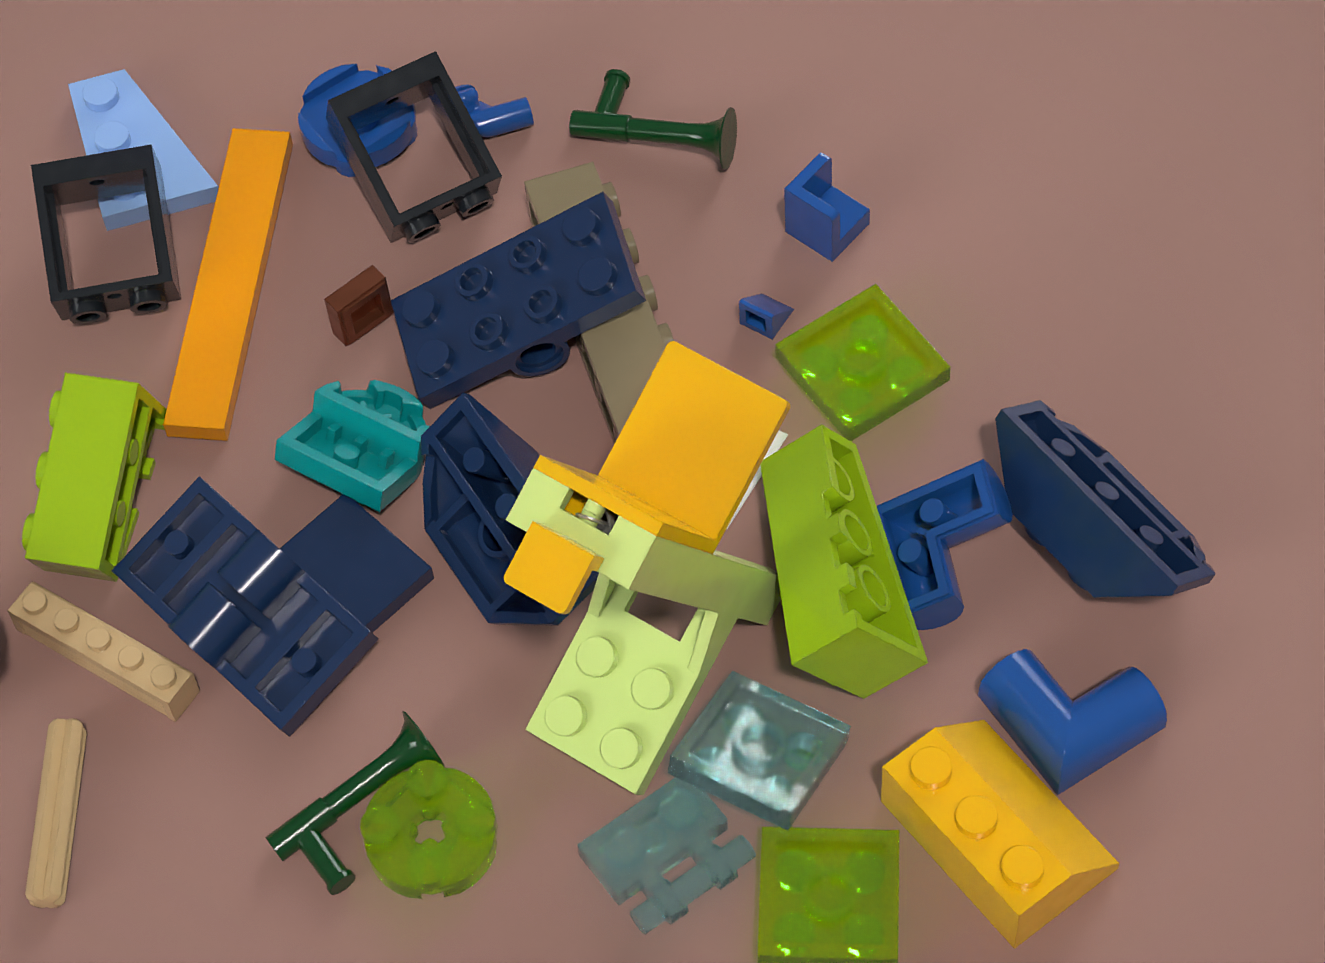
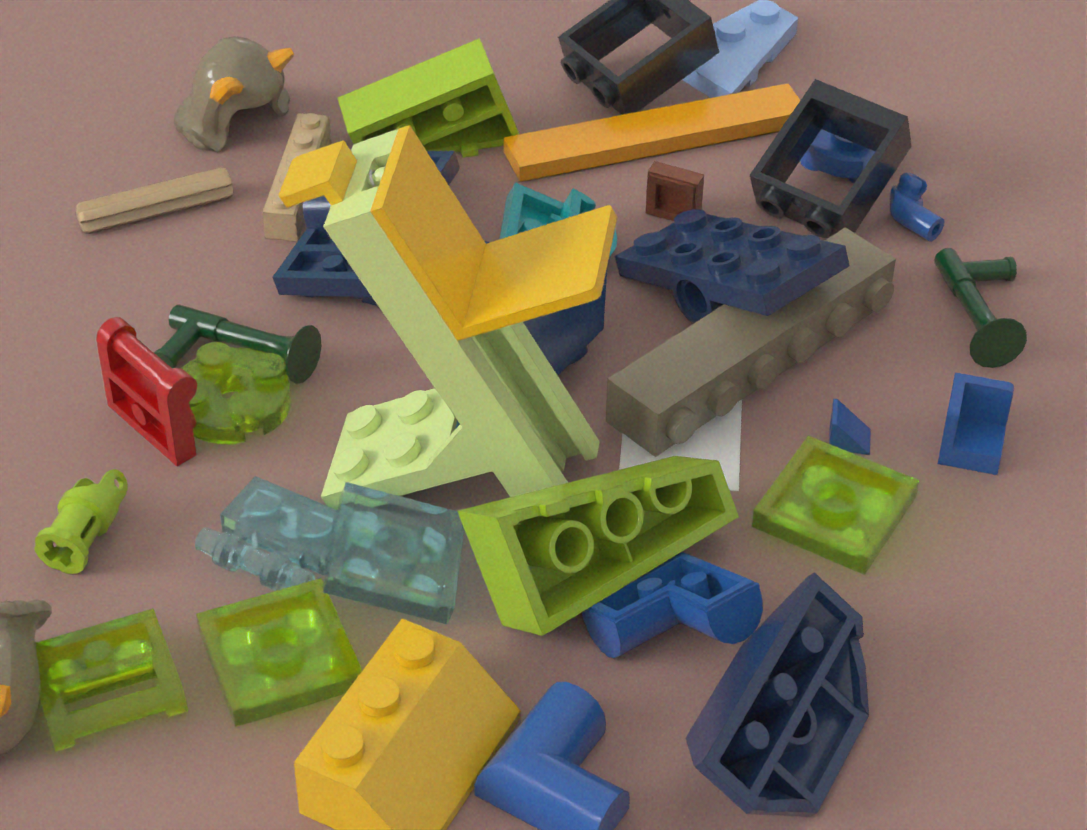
camera: 60 degrees right, 15 degrees down
(424, 904) = (147, 391): none -> red plate

